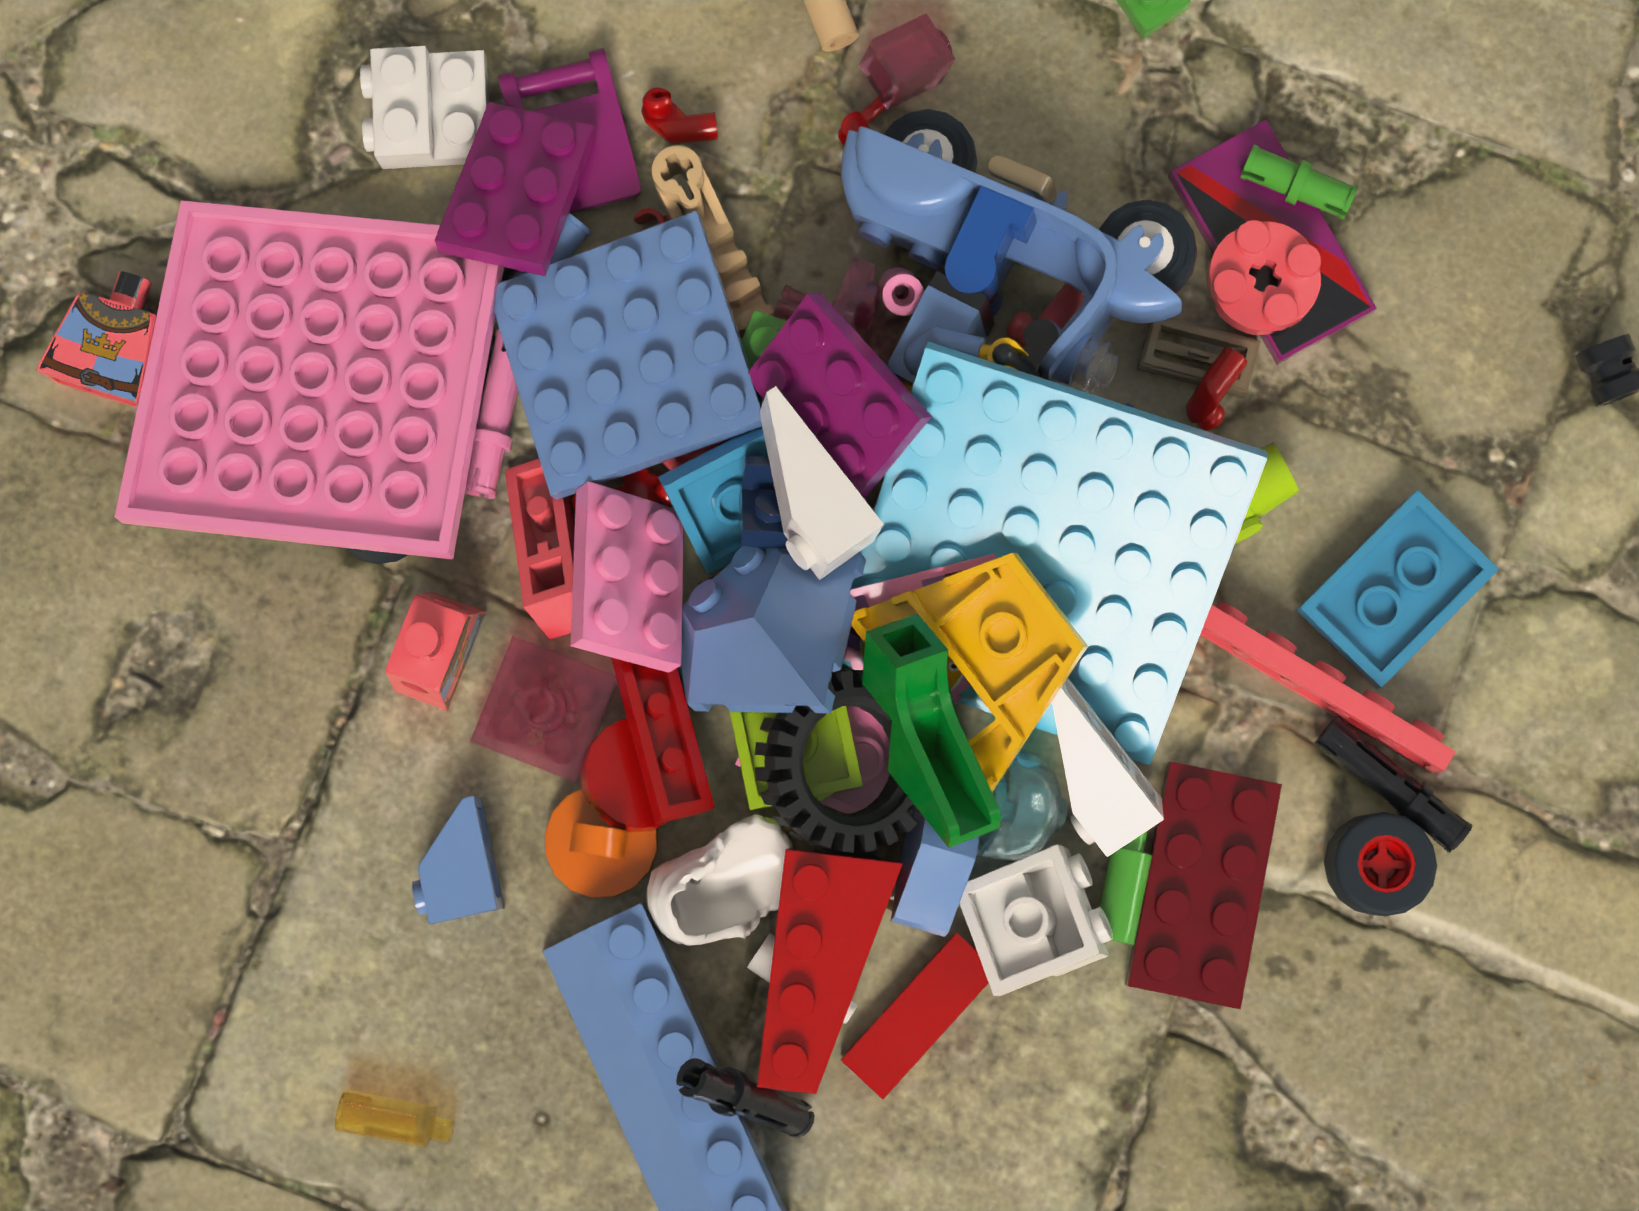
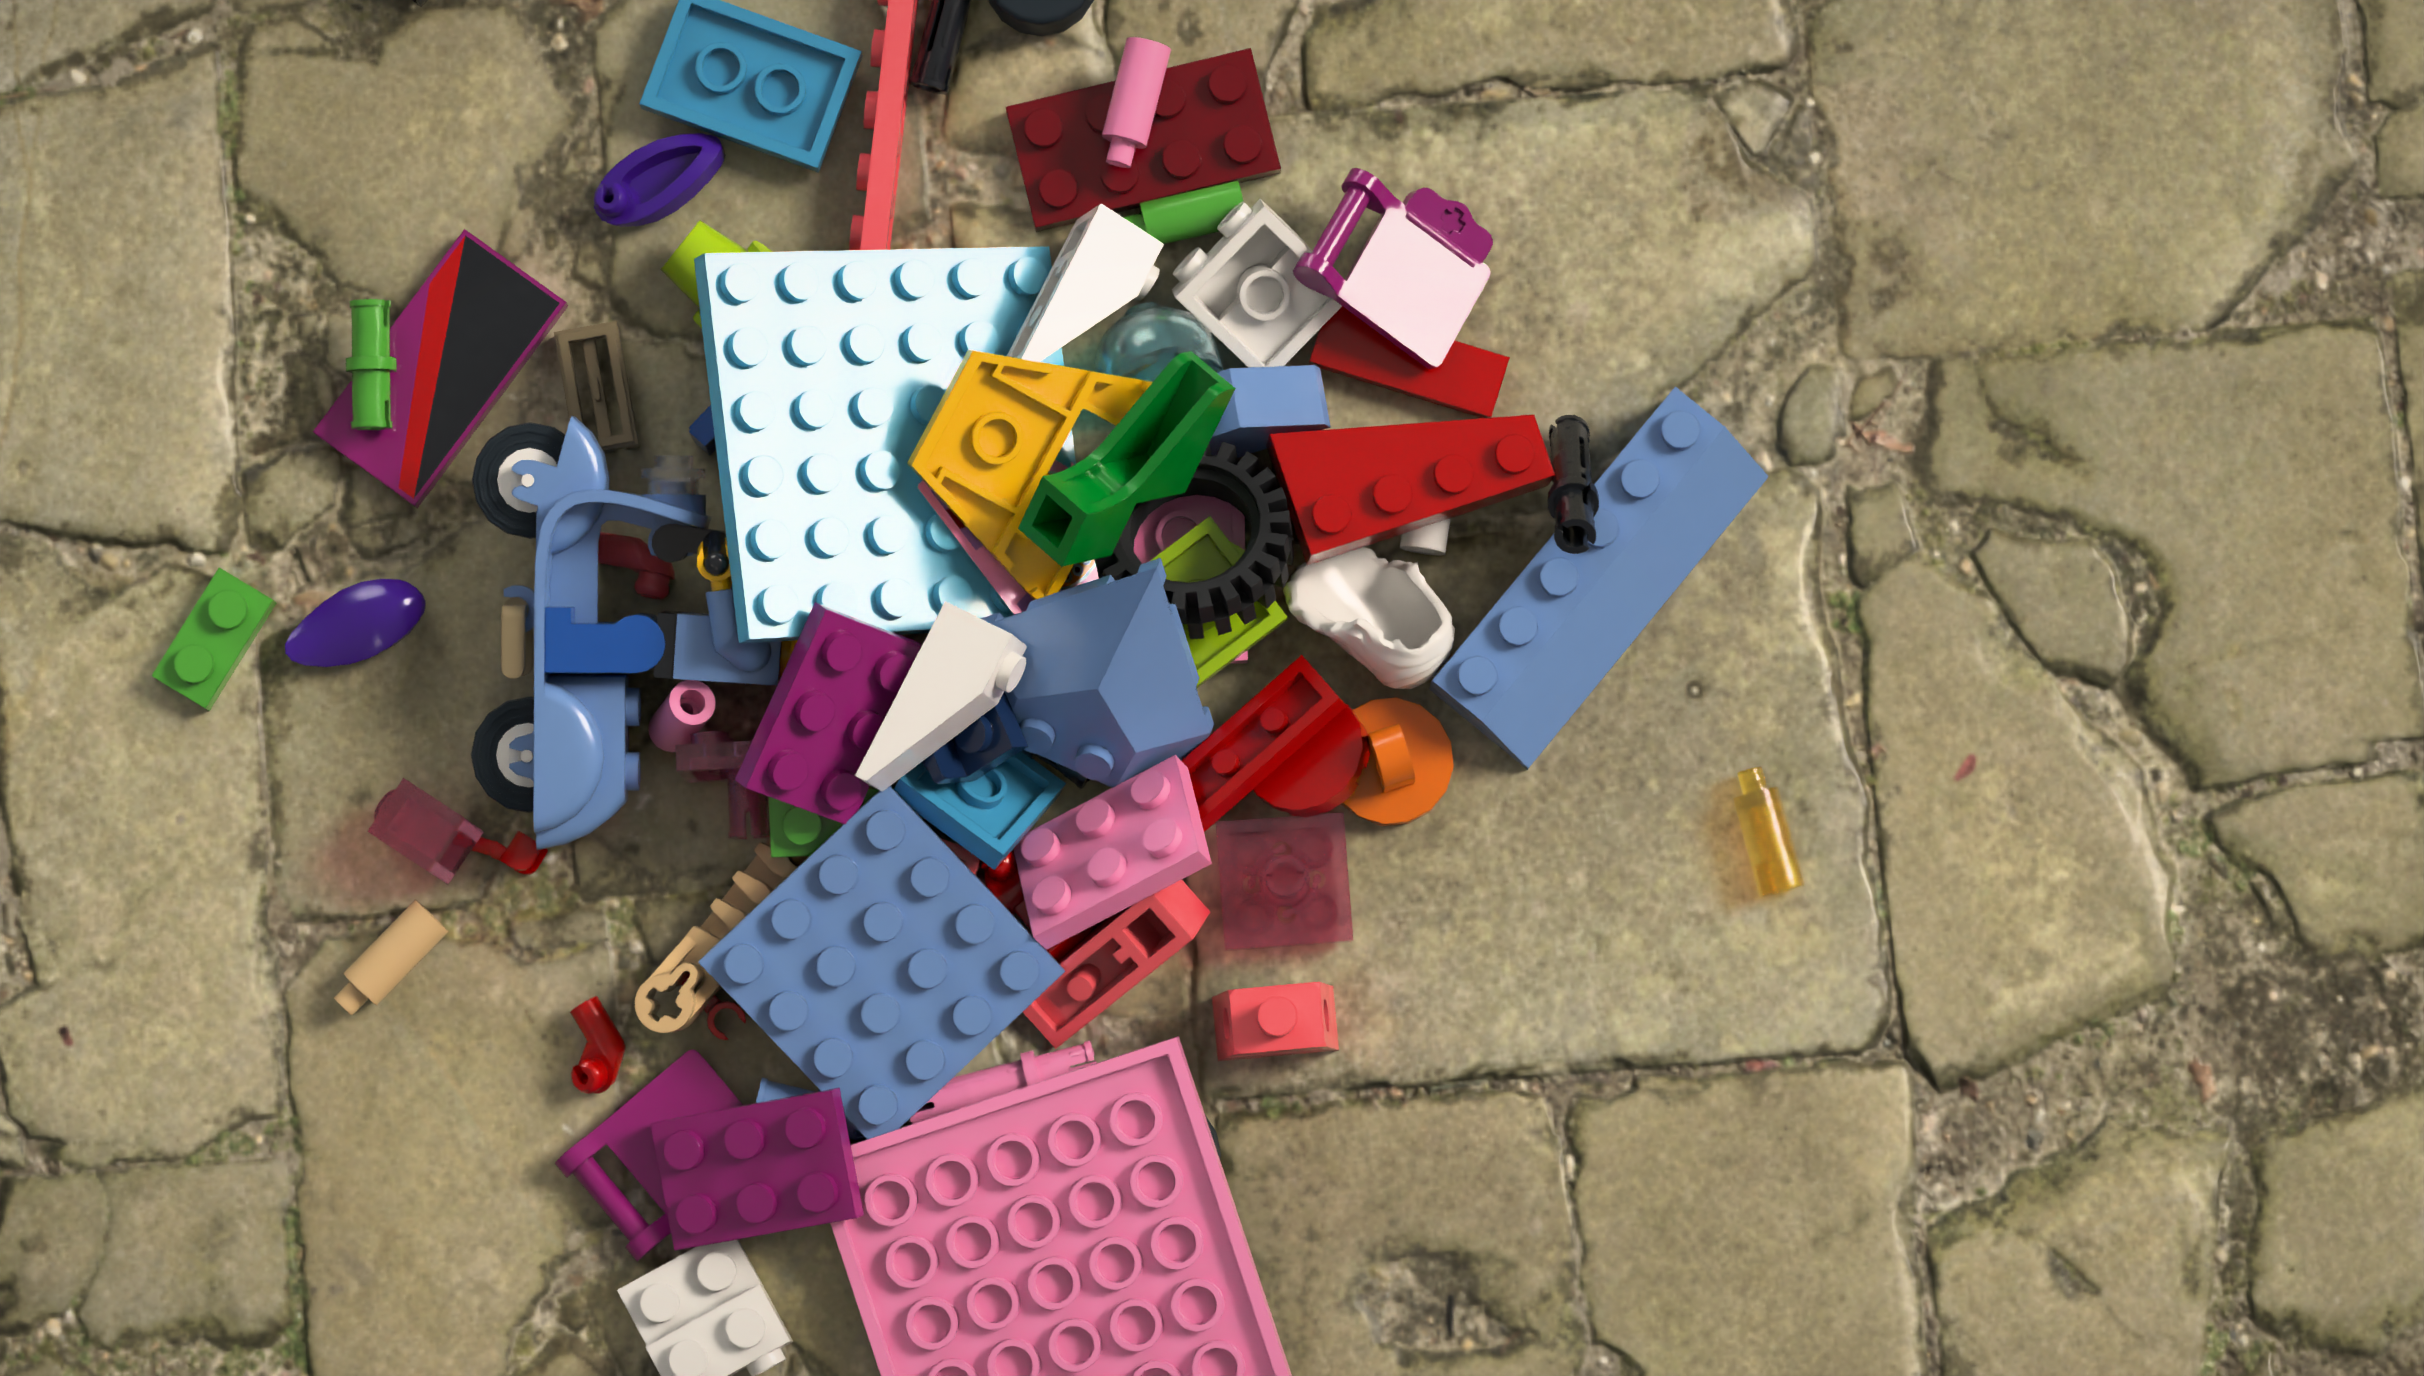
camera: 120 degrees left, 0 degrees up
(459, 868) = (1488, 887): medium blue slope -> none
(990, 1054) = (1412, 273): none -> piece
(1096, 86) = (356, 623): none -> dark purple arm
(1204, 402) = (646, 358): red arm -> none
(1240, 890) = (1134, 99): none -> bright pink cylinder
(1293, 264) = (463, 329): coral plate -> none
(1348, 478) = (657, 179): none -> dark purple arm

